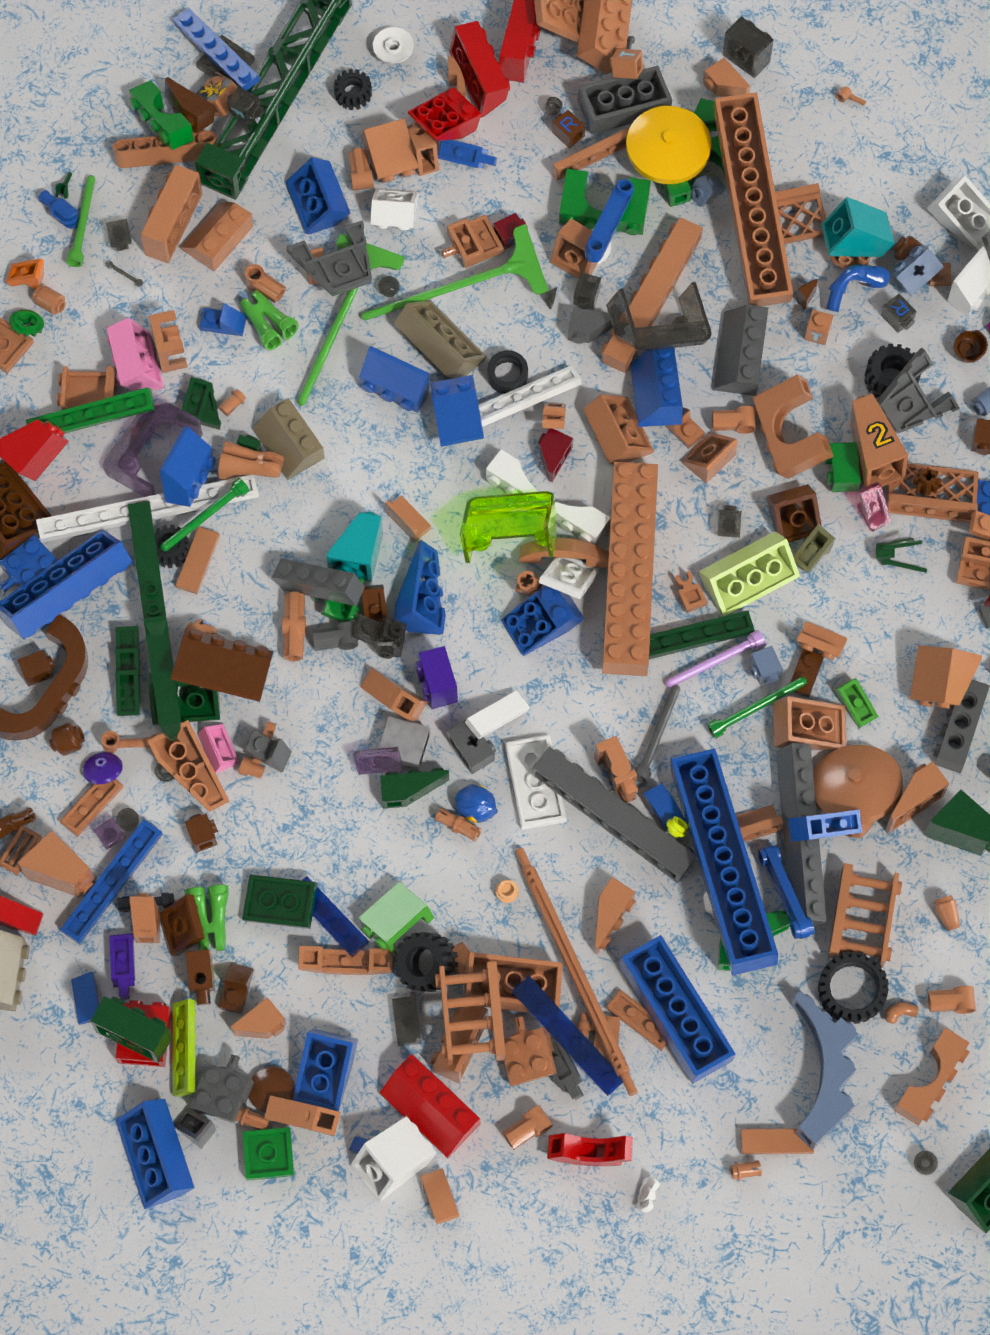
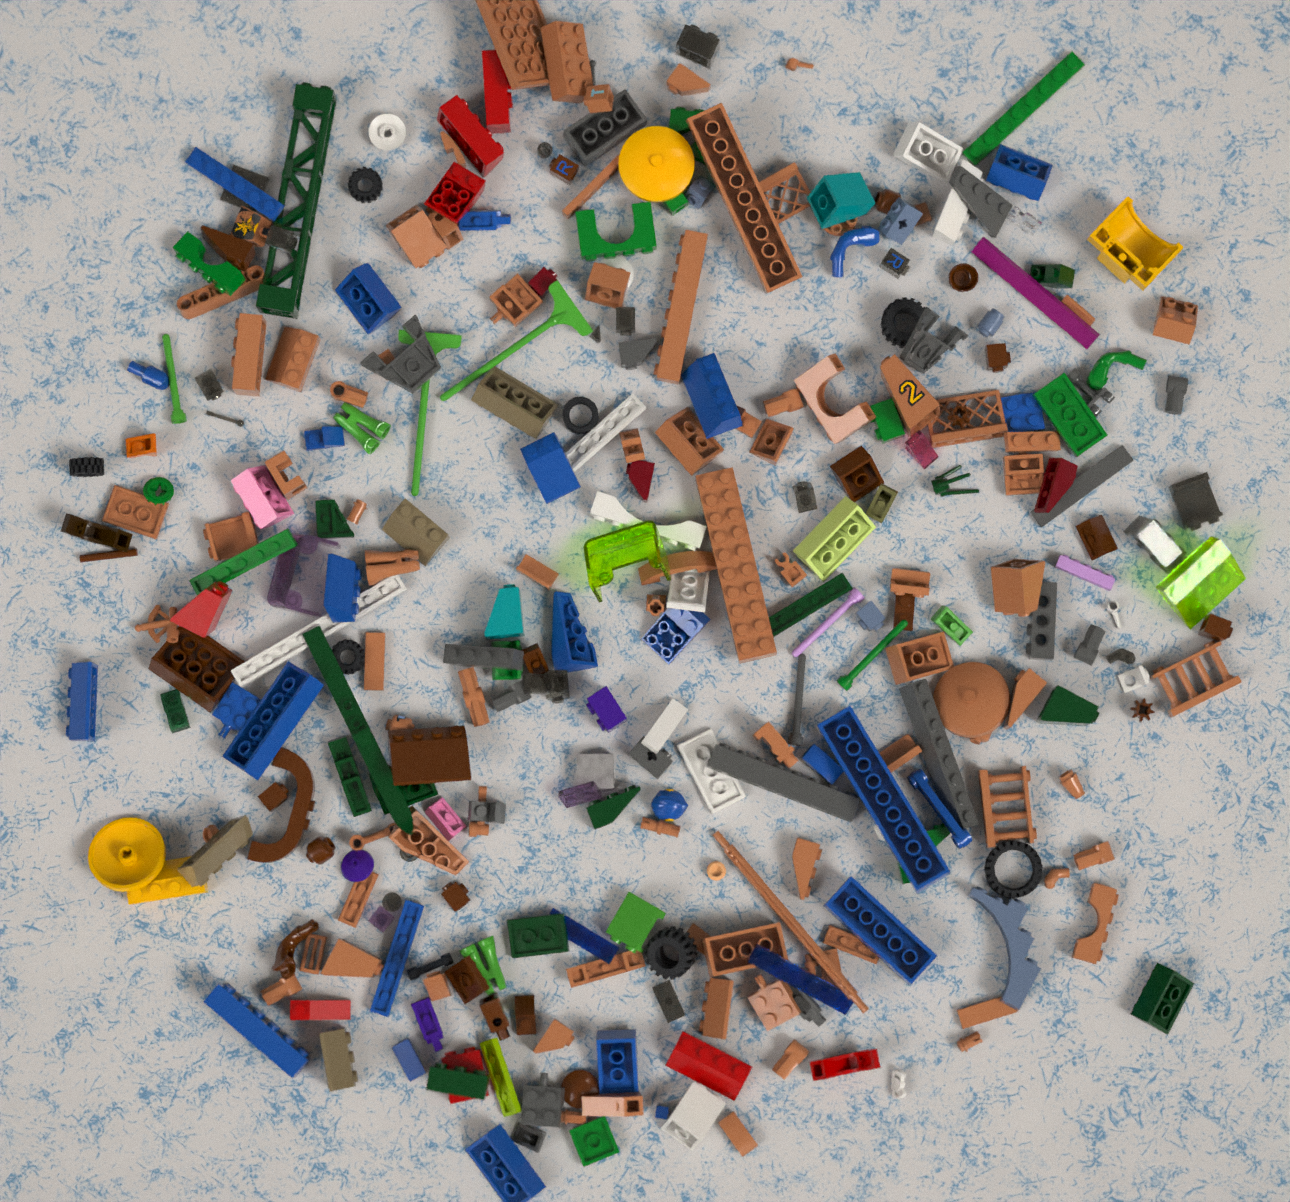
camera: 15 degrees left, 15 degrees up
(49, 299) = (170, 463): nougat brick -> none
(62, 188) = (145, 352): dark green hand -> none
(237, 489) = (388, 593): green piece -> none
(249, 442) = (384, 545): dark green plate -> none
(360, 173) = (398, 265): nougat piece -> none
(388, 286) = (455, 364): clear smoke plate -> none
(394, 209) = (437, 289): white slope -> none
(394, 380) = (488, 454): blue slope -> none
(394, 695) = (574, 733): nougat slope -> none
(493, 1022) = (741, 992): nougat fence -> none
(609, 220) = (628, 257): blue piece -> none
(677, 827) = (838, 779): neon yellow plate -> none
(684, 331) = (723, 333): clear smoke windscreen -> none
(741, 350) = (771, 336): dark grey slope -> none
(806, 293) = (811, 268): reddish brown slope -> none
(818, 327) = (831, 297): nougat brick -> none
(825, 825) = (957, 749): blue slope -> none
(927, 1155) = (1113, 993): clear smoke plate -> none

